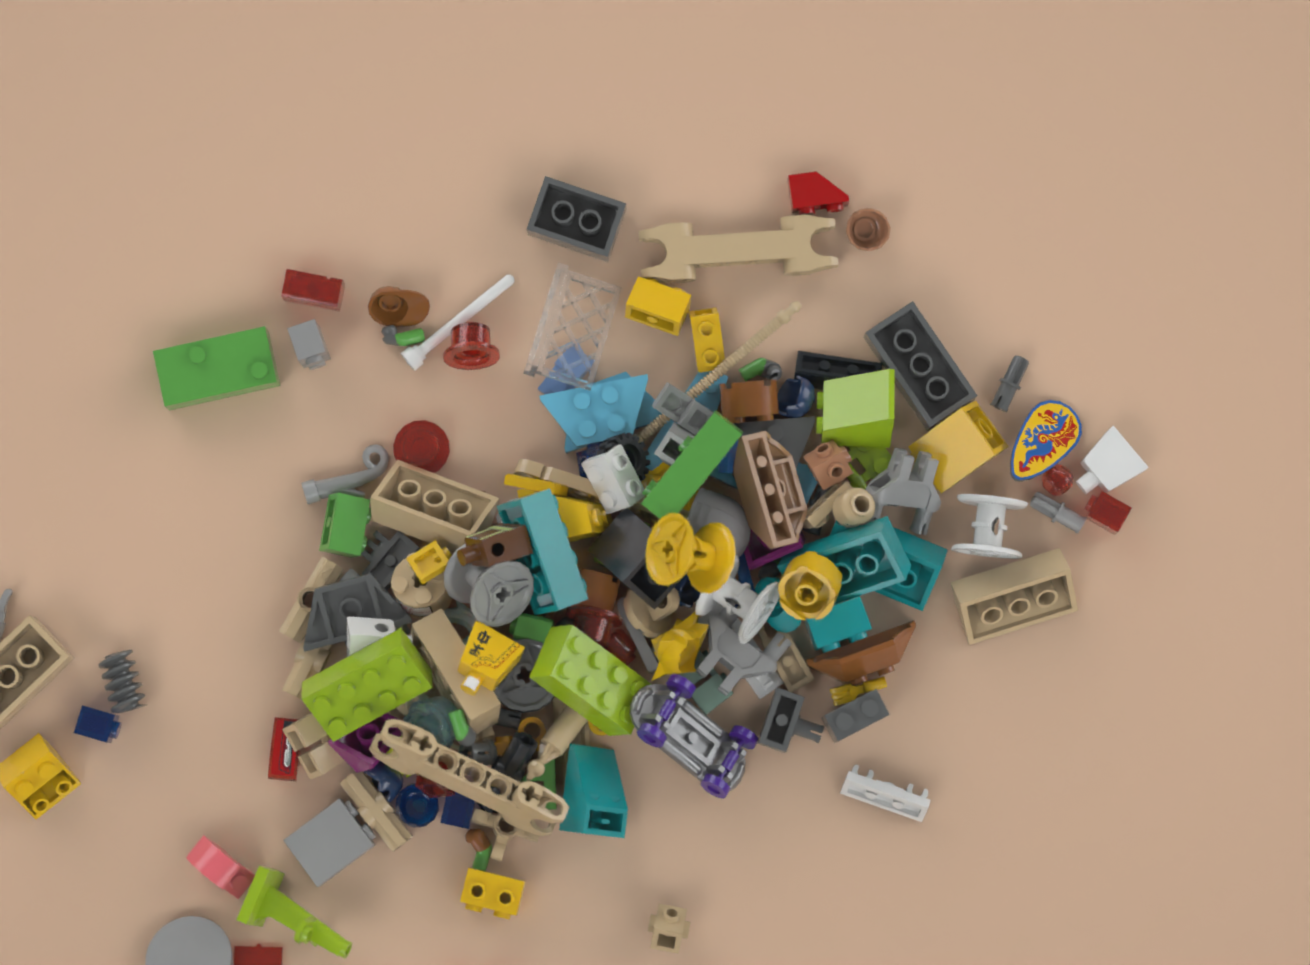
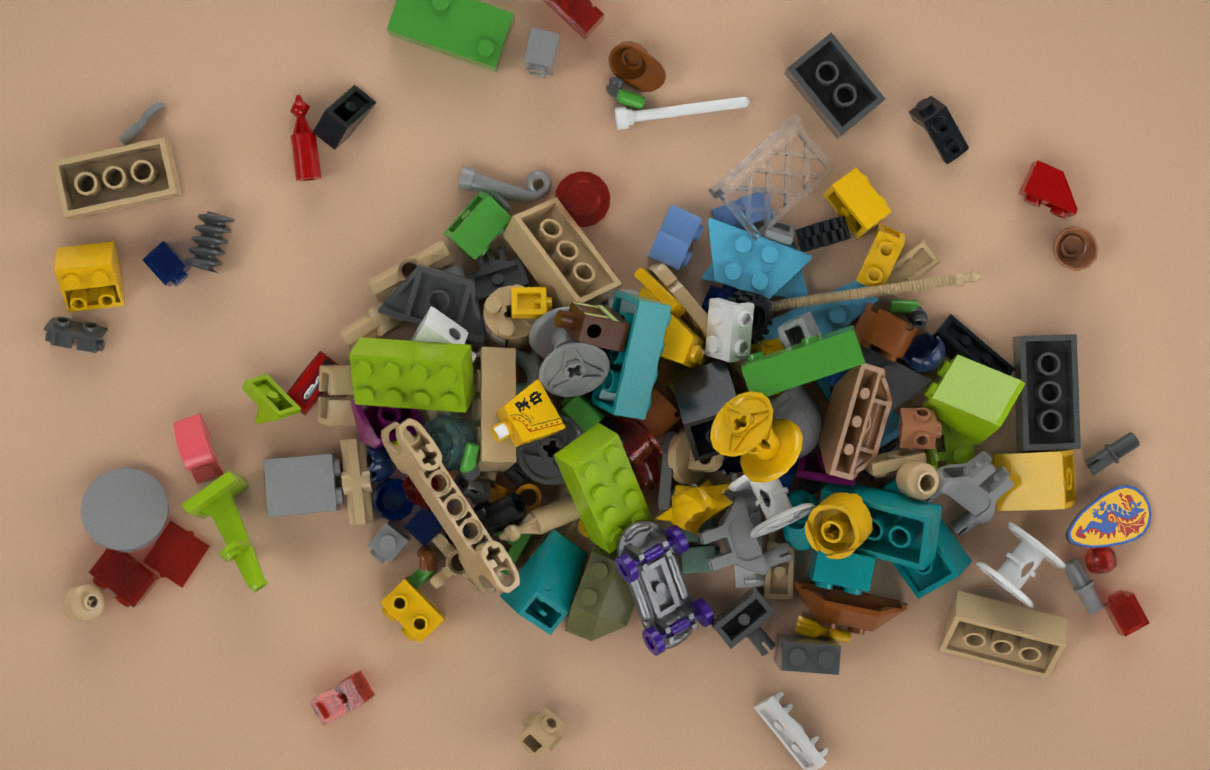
camera: 30 degrees right, 5 degrees up
(41, 838) = (88, 334): none -> dark grey hinge
(153, 549) = (304, 144): none -> red wheel
(173, 504) = (343, 117): none -> black slope
(258, 784) = (271, 399): none -> lime slope
(435, 846) = (388, 543): none -> light grey brick
(471, 347) = (677, 140): clear red piece -> none
(521, 431) = (675, 238): none -> medium blue brick
(609, 371) = (781, 233): none -> light grey tile
(645, 350) = (822, 234): none -> black tyre
(650, 780) = (602, 599): none -> olive wedge
(682, 408) = (824, 304): light grey slope -> none
(690, 198) = (940, 127): none -> black bracket
(739, 328) = (913, 264): none -> tan plate
(785, 246) = (998, 219): tan piece -> none
(1110, 463) = (1154, 573): white torso -> none

